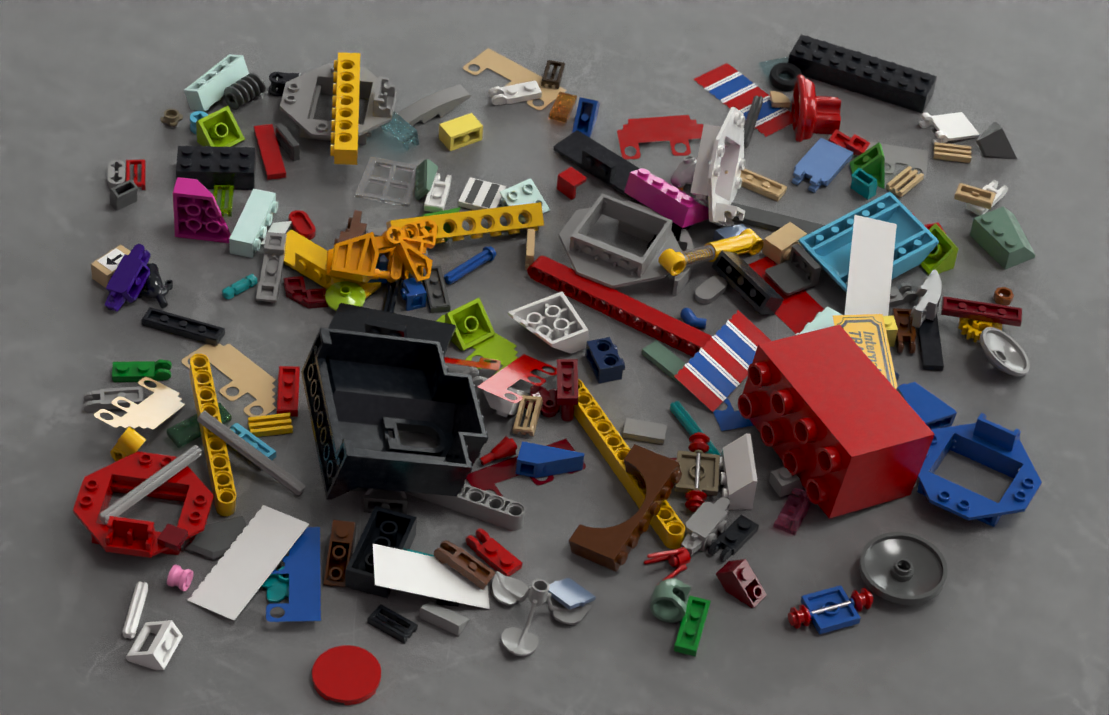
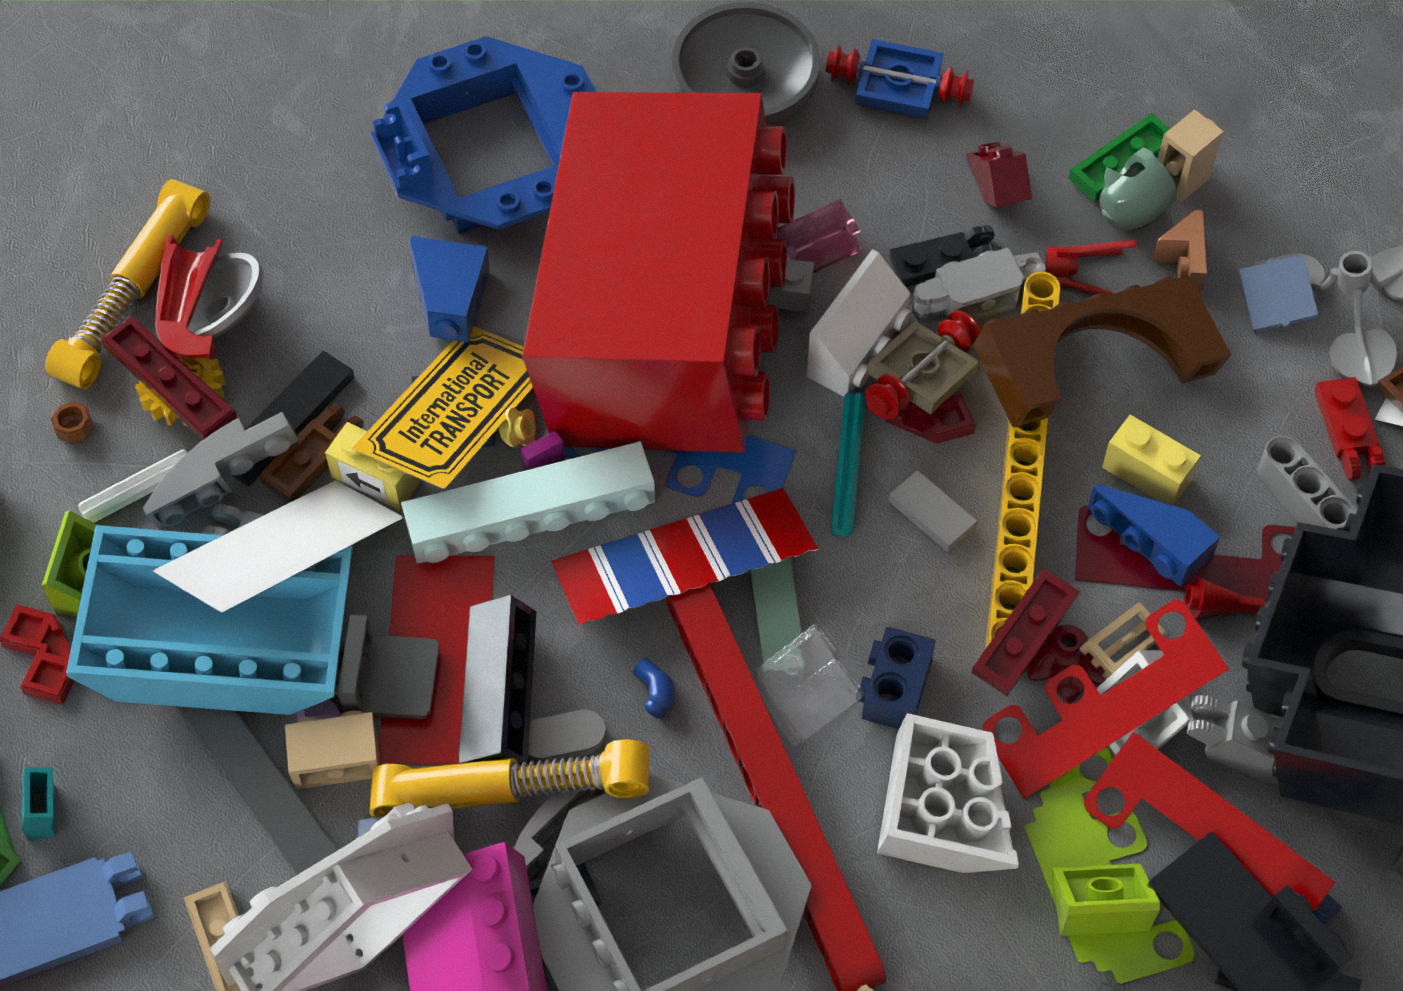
camera: 140 degrees left, 15 degrees up
(569, 486) = (1150, 461): none -> light yellow brick
(624, 592) = (1186, 247): none -> nougat slope
(637, 334) = (806, 685): none -> clear slope
(660, 625) = (1190, 152): none -> tan brick
(956, 283) = (128, 490): none -> white axle
(1024, 351) = (179, 290): none -> red animal
(1062, 384) = (177, 210): none -> yellow piece

